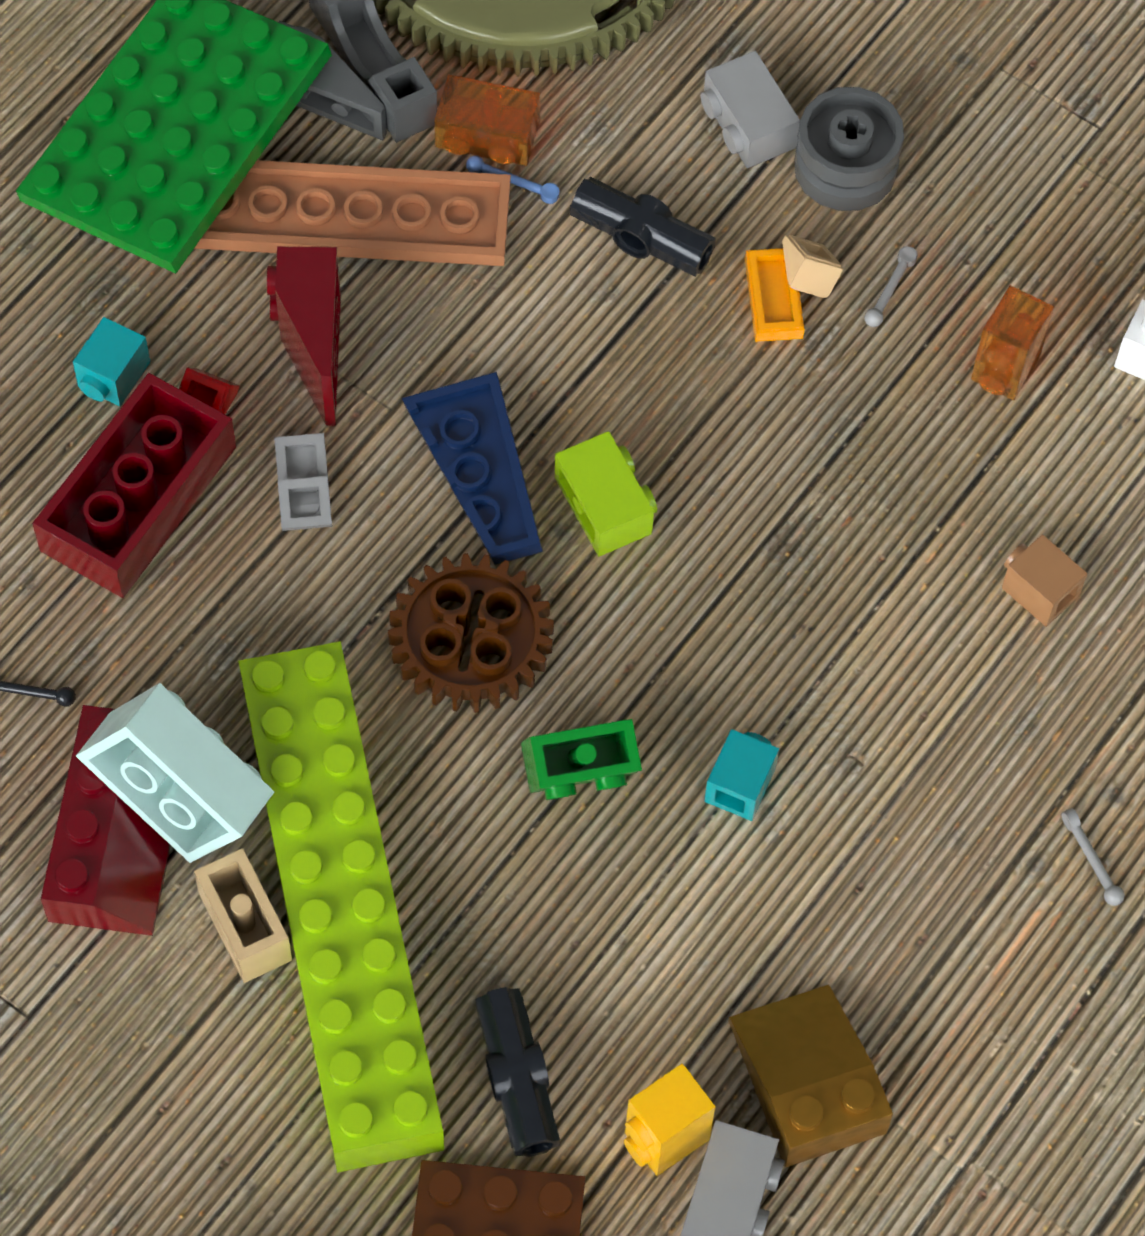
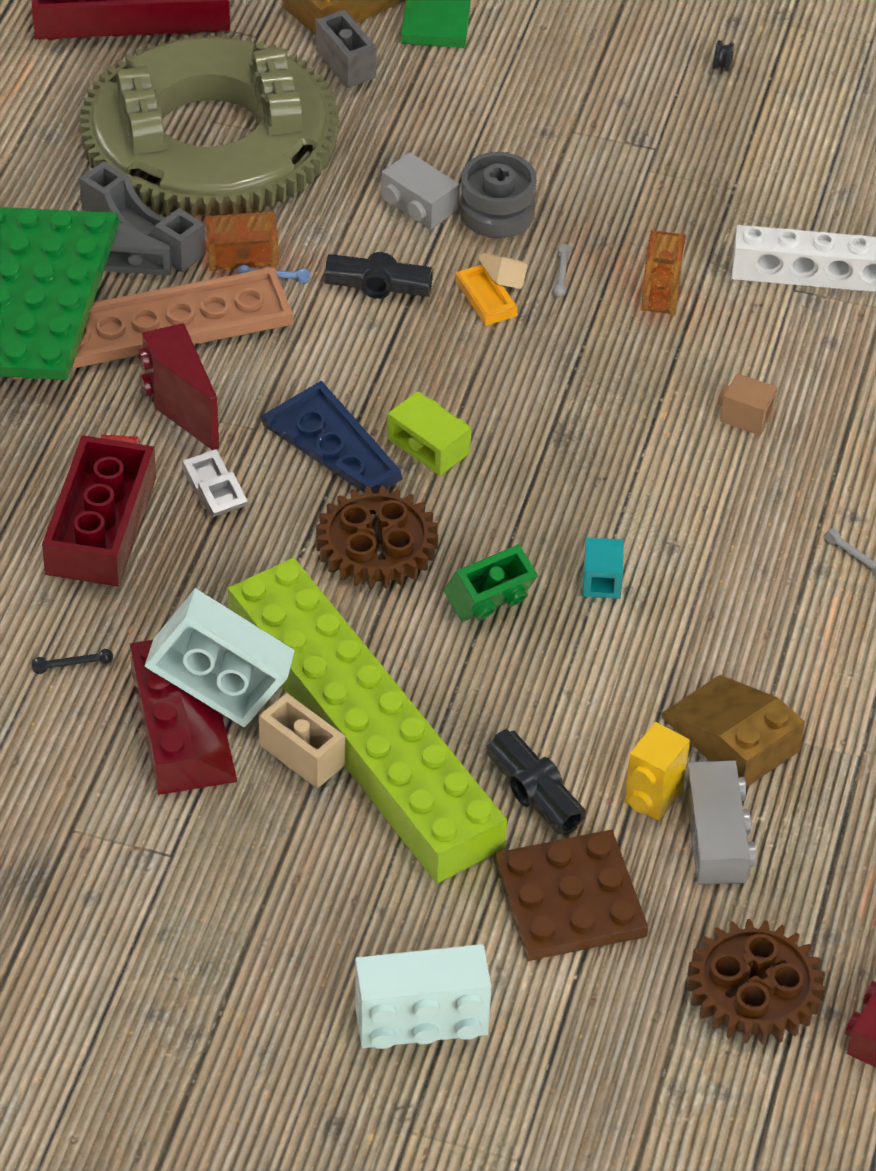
camera: 20 degrees left, 15 degrees down
(111, 362) = (44, 446): teal brick -> none

